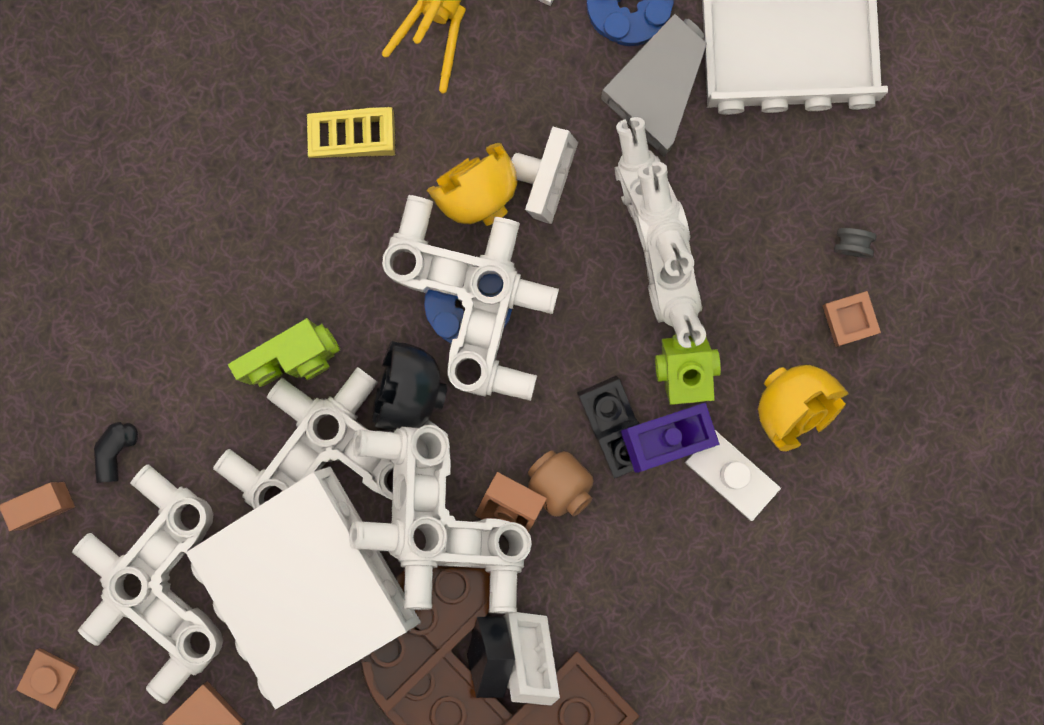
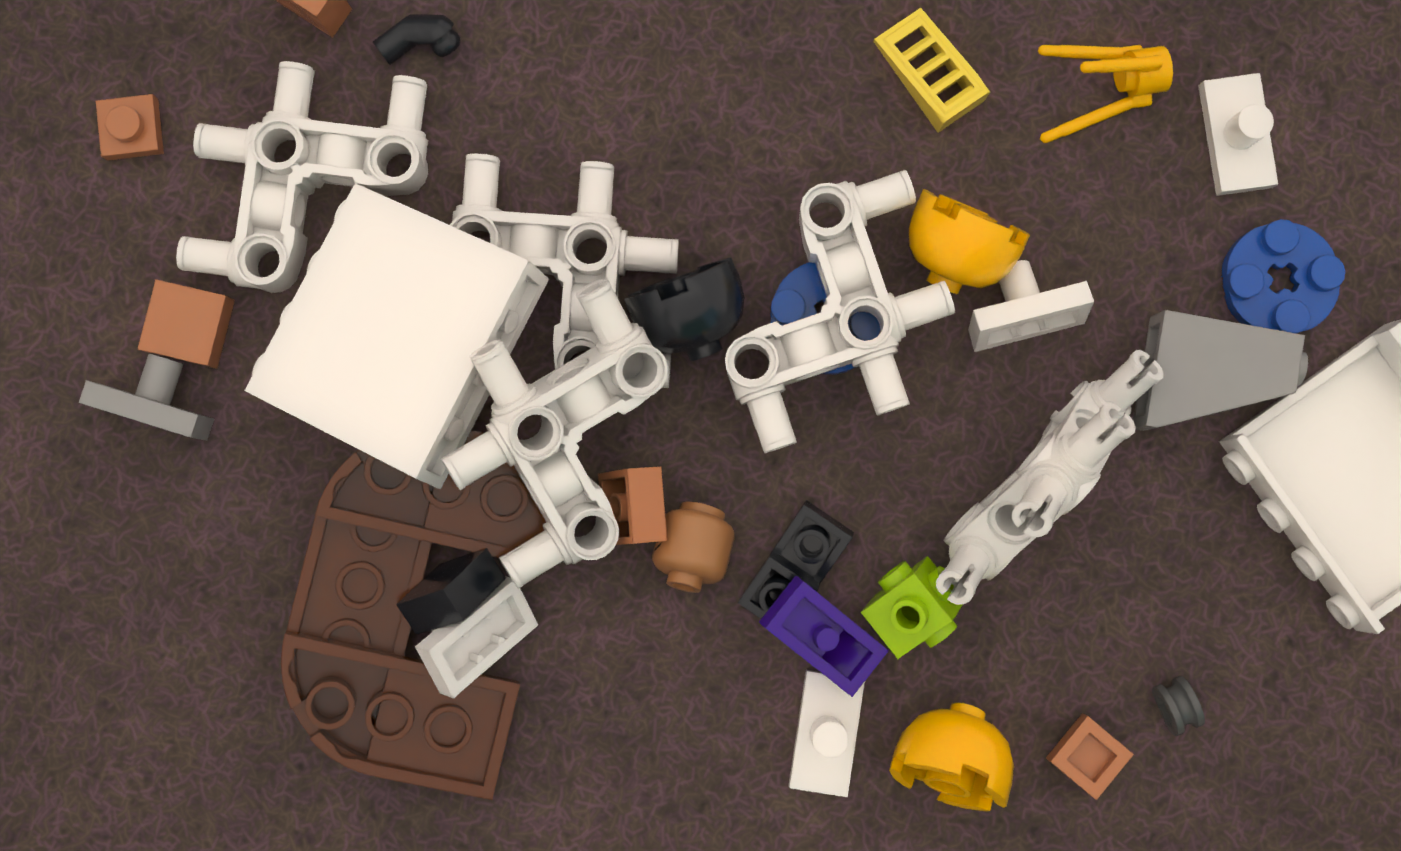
camera: 60 degrees right, 0 degrees up
(299, 351) = (651, 158): lime plate -> none

